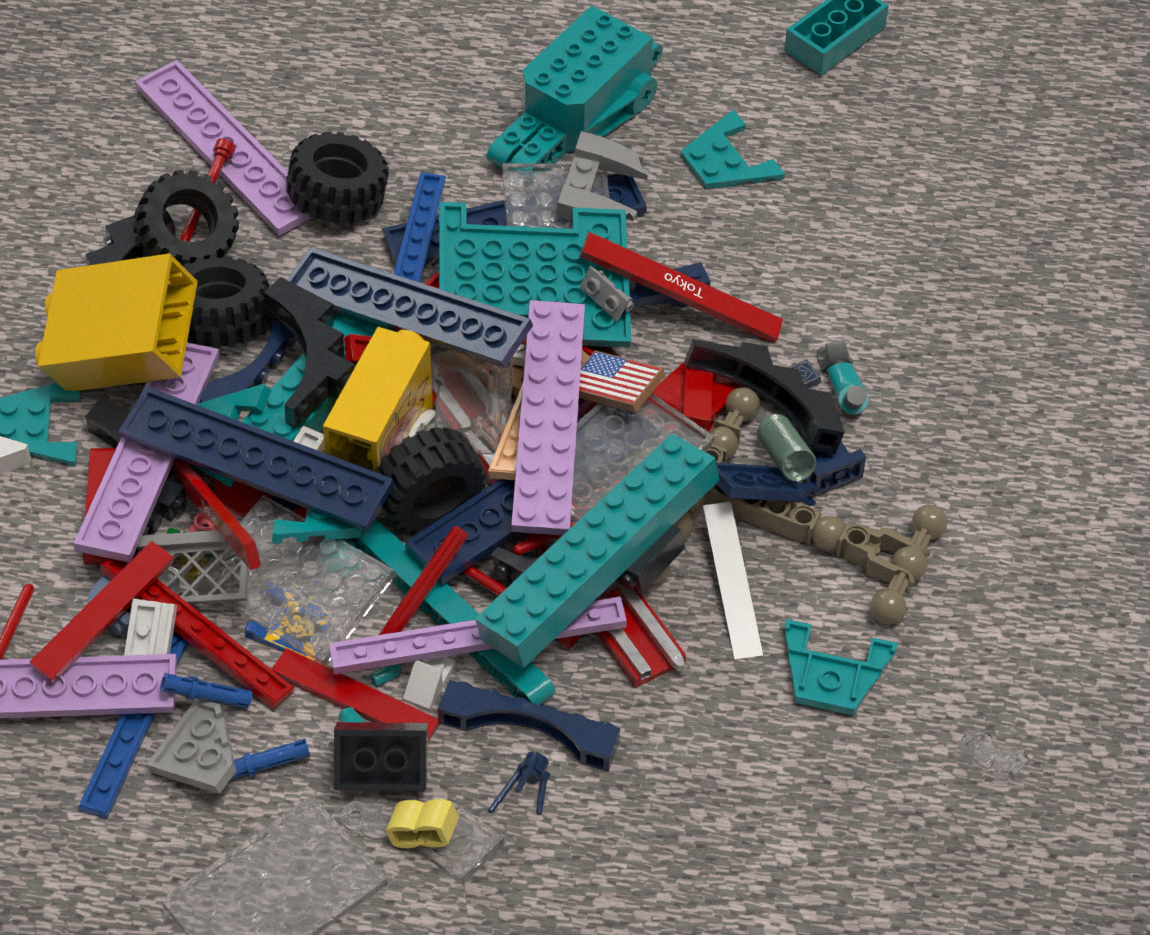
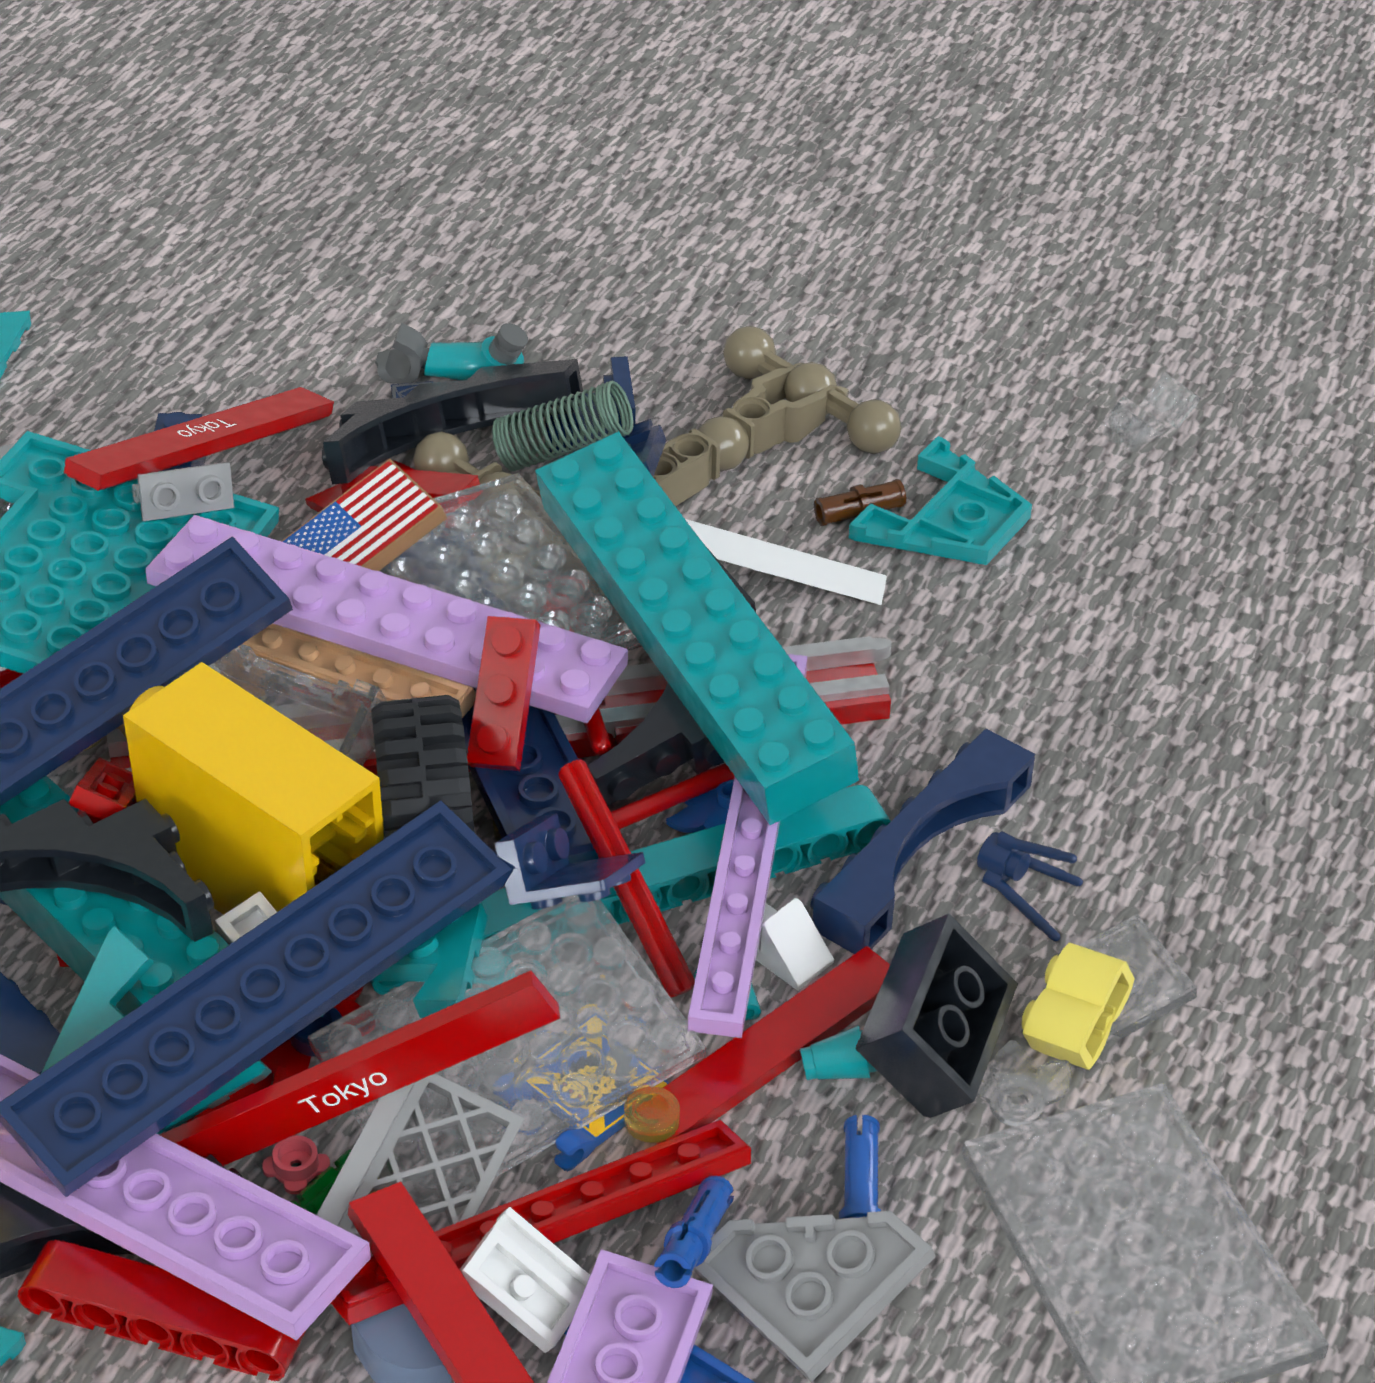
camera: 70 degrees left, 10 degrees down
(281, 655) = (651, 1114): none -> clear yellow tile
(391, 549) = (543, 871): none -> dark blue bracket
(504, 484) = (503, 693): none -> red plate
(803, 609) = (852, 503): none -> reddish brown pin

